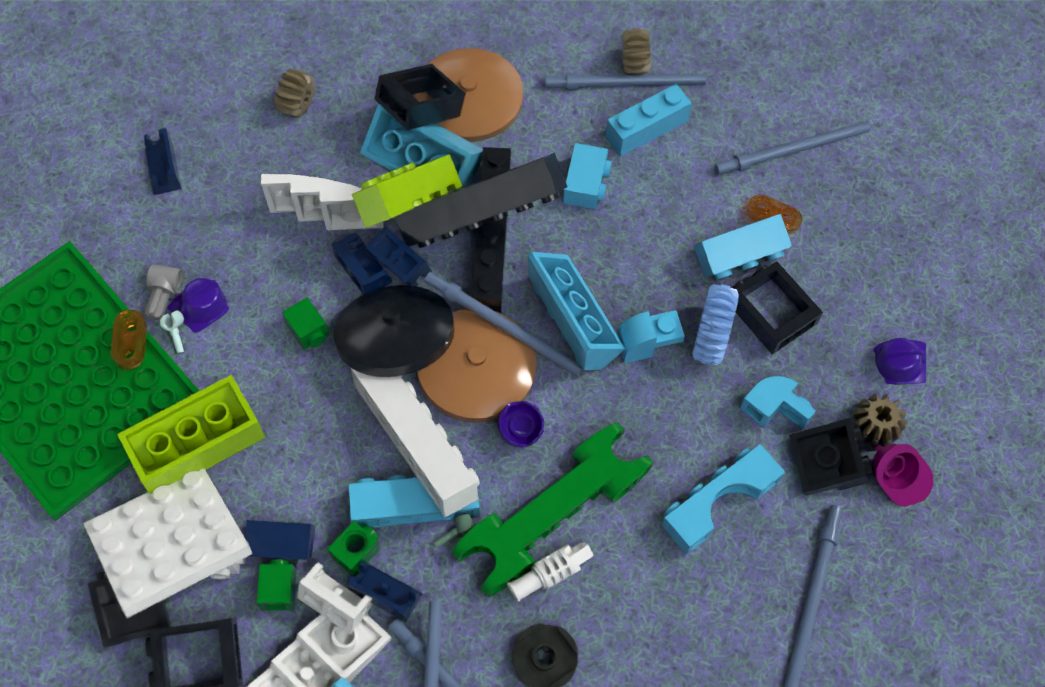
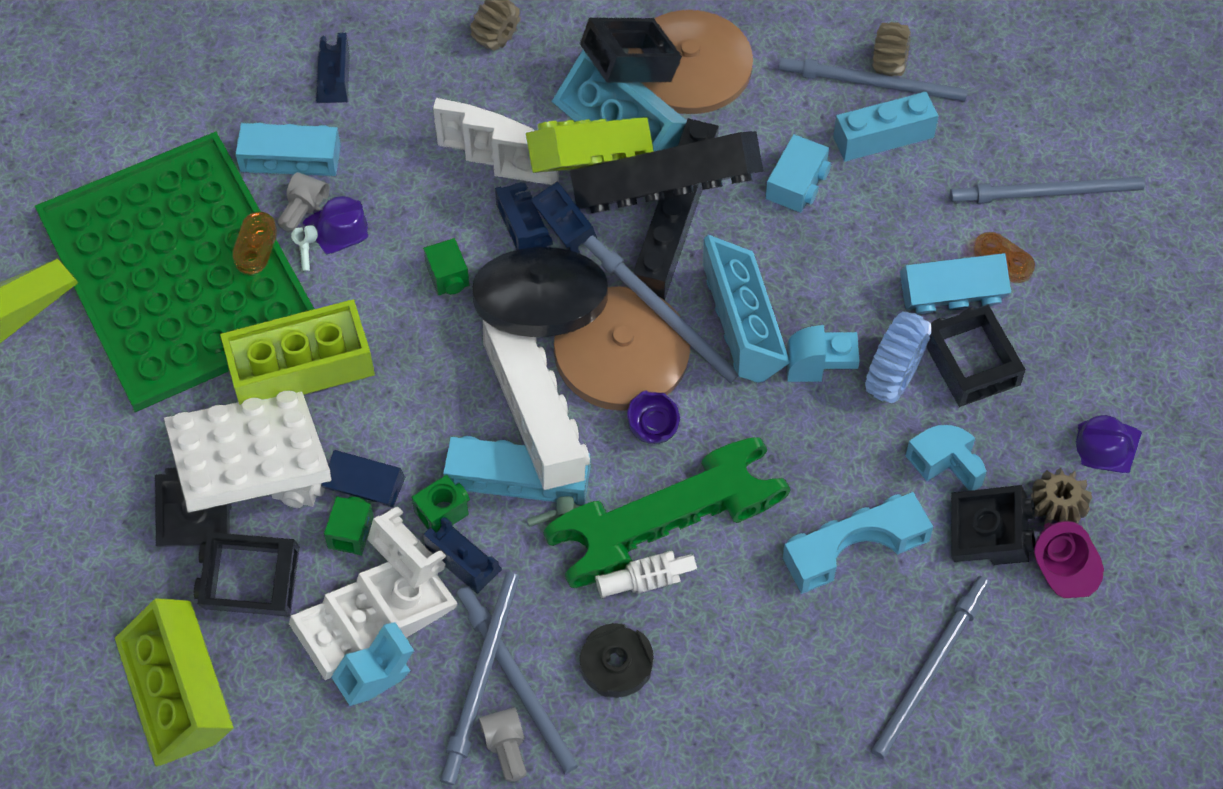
camera: 15 degrees right, 5 degrees down
(138, 244) = (288, 149): none -> medium azure brick

